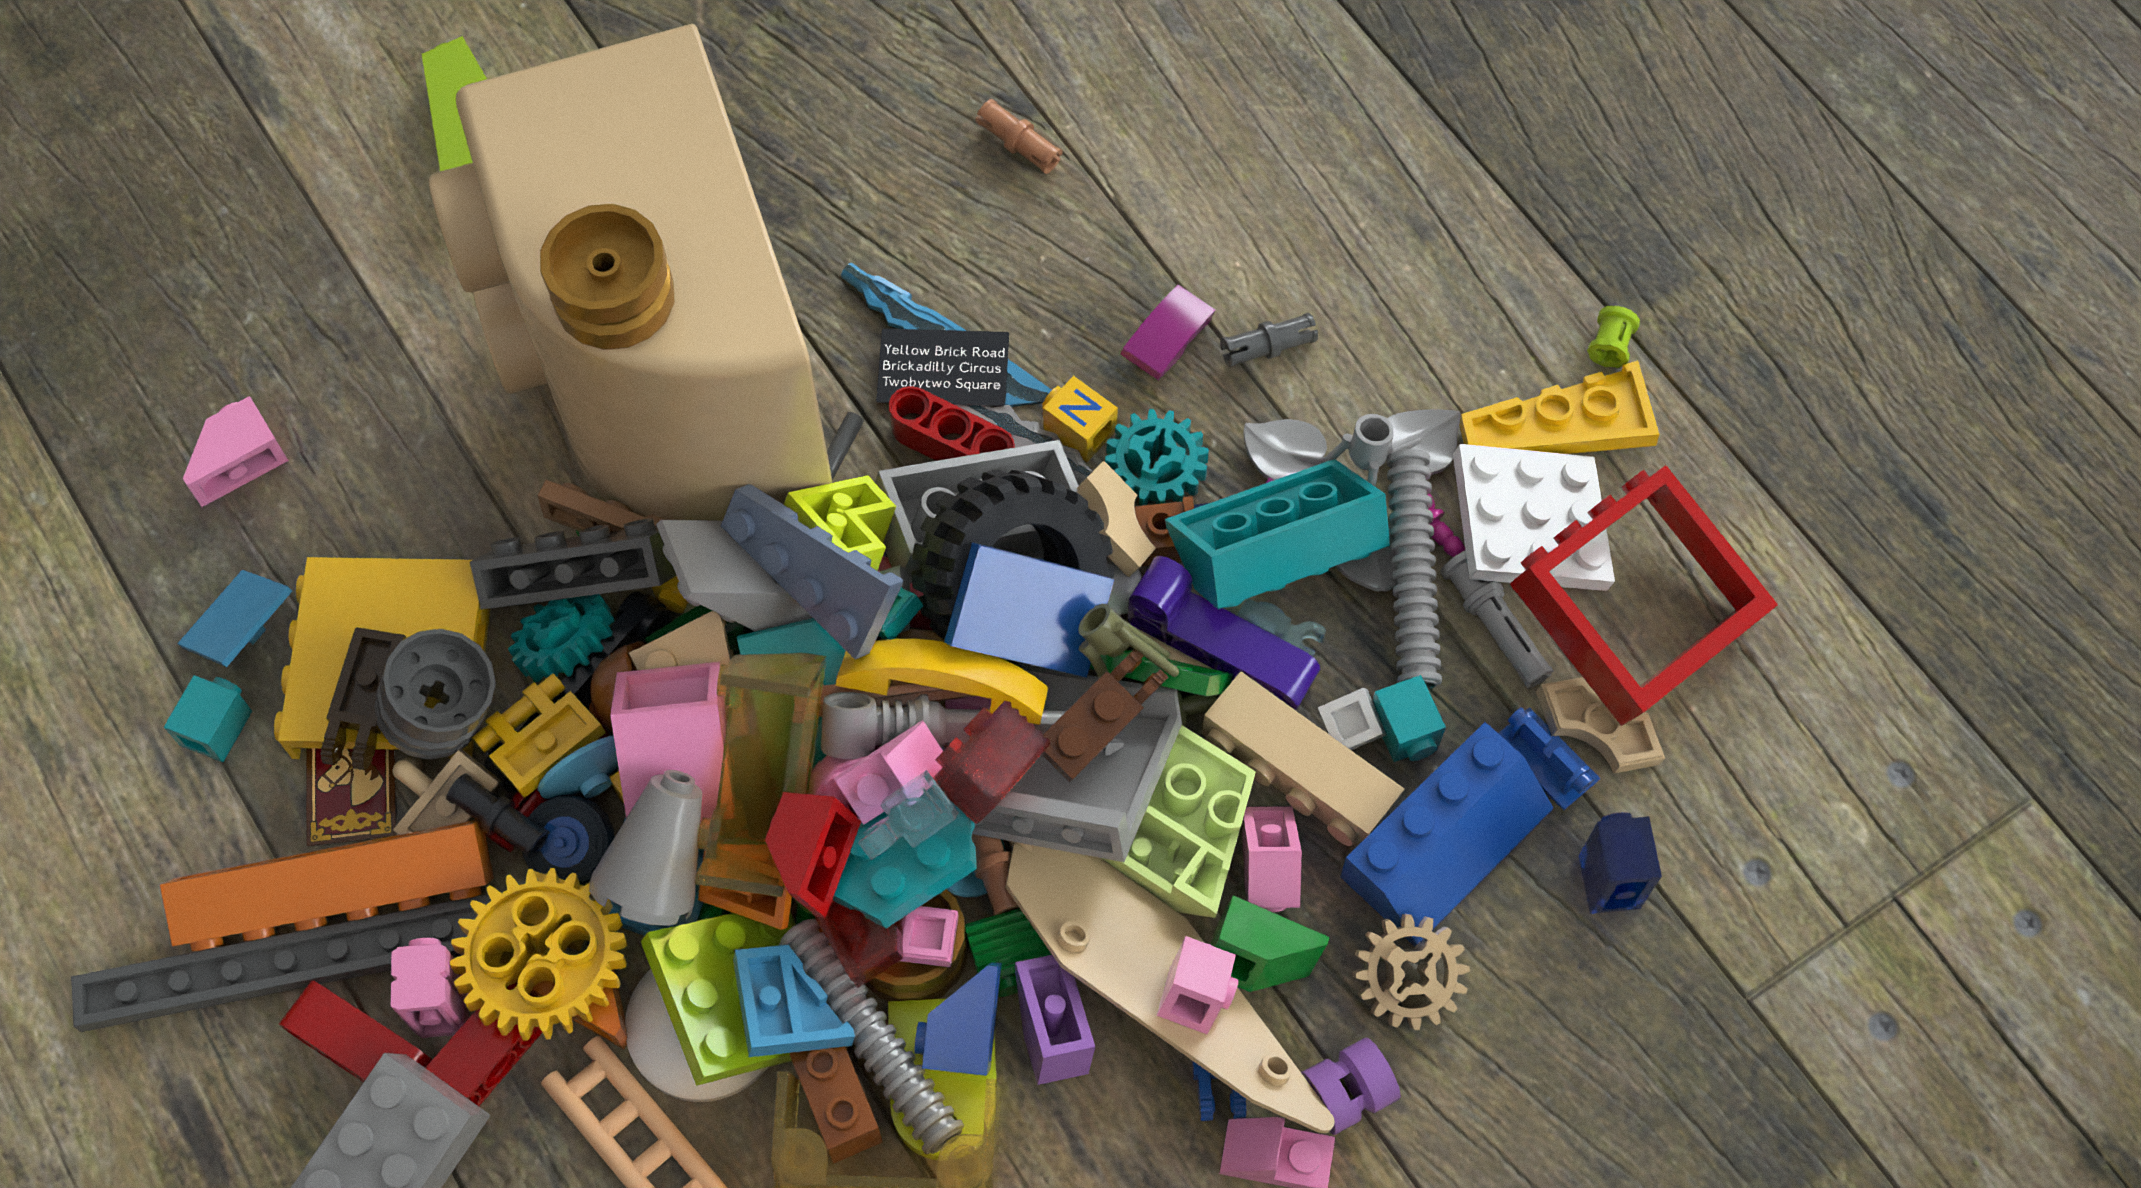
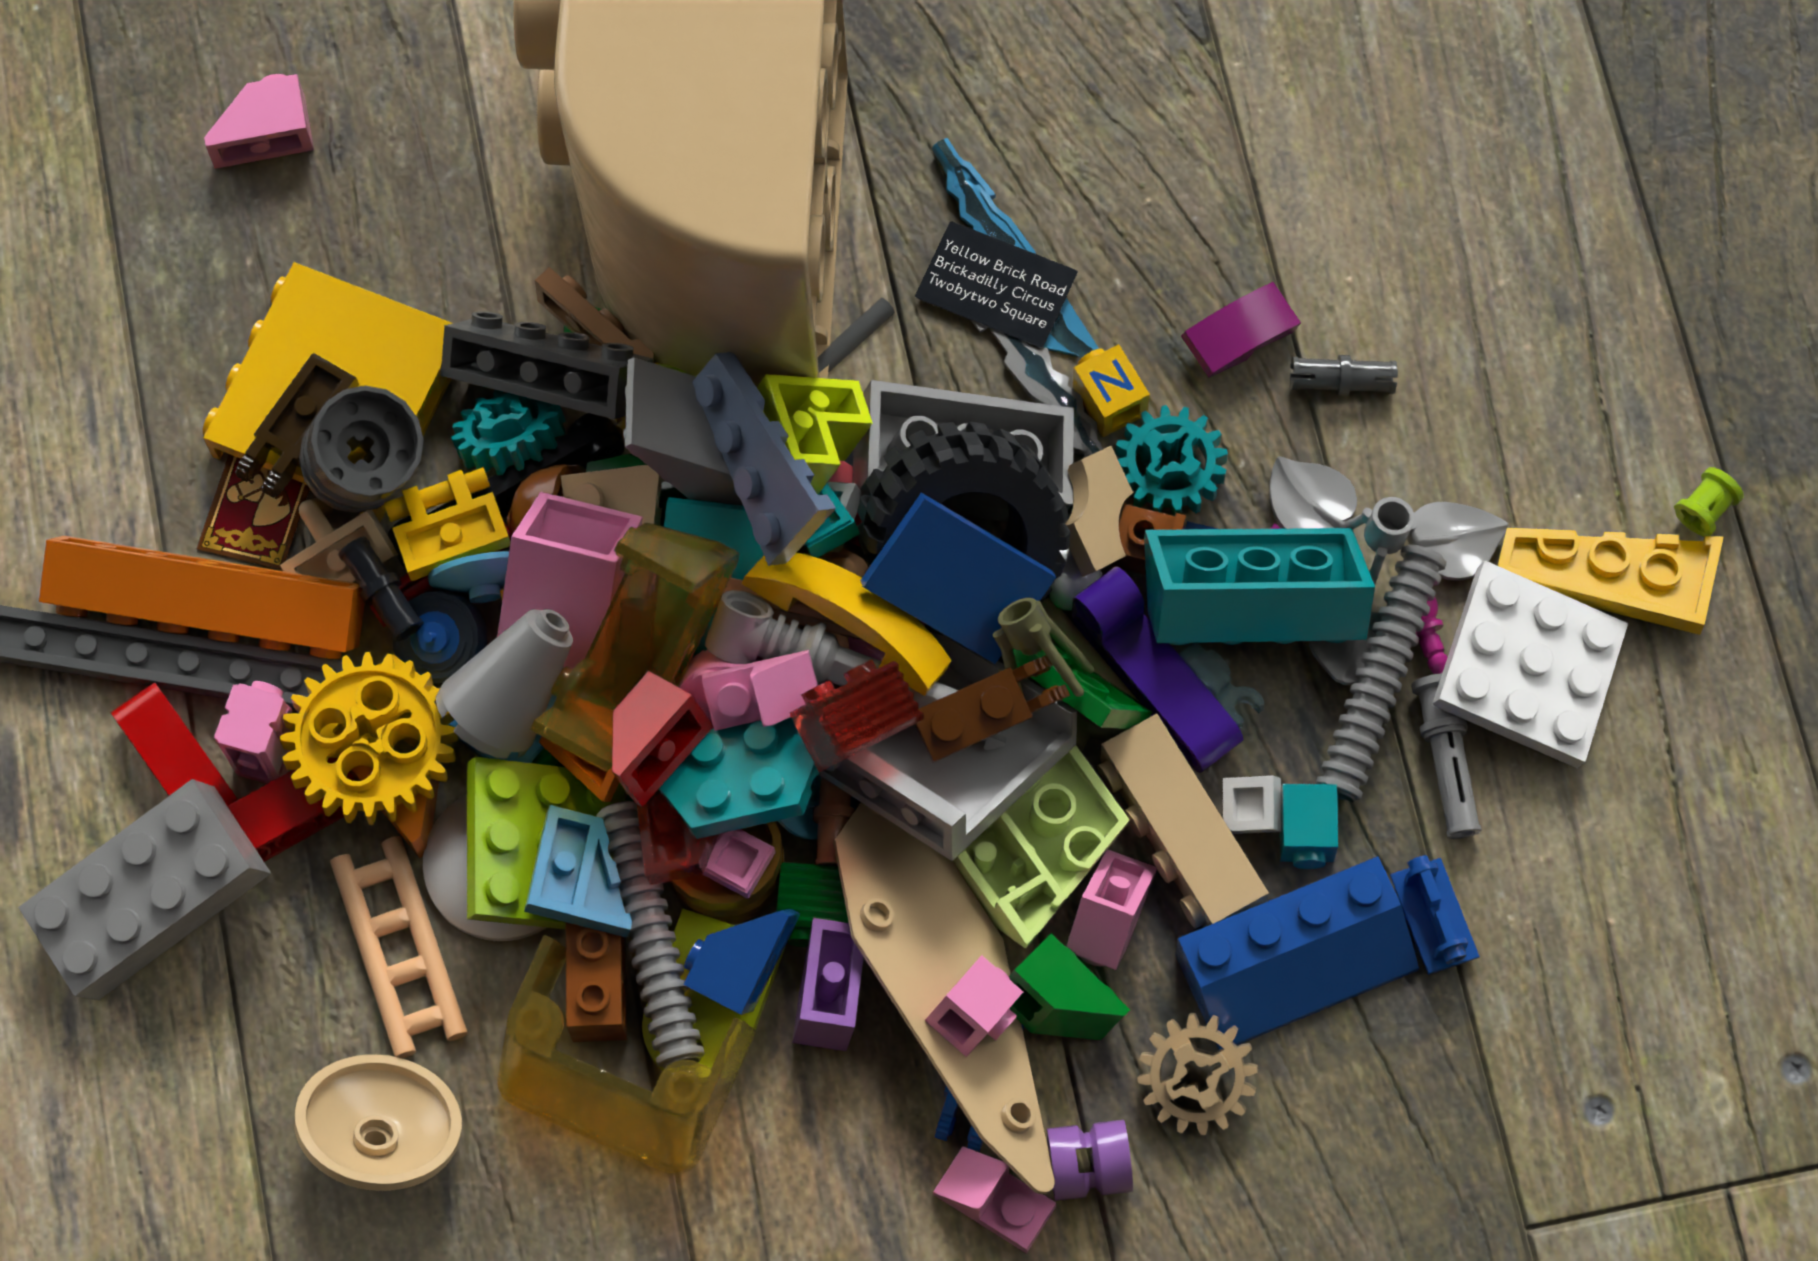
camera: 25 degrees right, 5 degrees up
(209, 717) = (148, 388): teal brick -> none
(235, 618) = (206, 297): dark azure piece -> none
(607, 276) = (640, 122): pearl gold wheel -> none
(912, 812) = (759, 737): clear light blue plate -> none
(940, 419) = (965, 341): red beam -> none
(1019, 136) = (1176, 59): nougat pin -> none
(1577, 712) = (1520, 922): tan tile -> none
(1579, 638) = (1511, 811): red window -> none
(1619, 863) = (1450, 1047): clear blue brick -> none

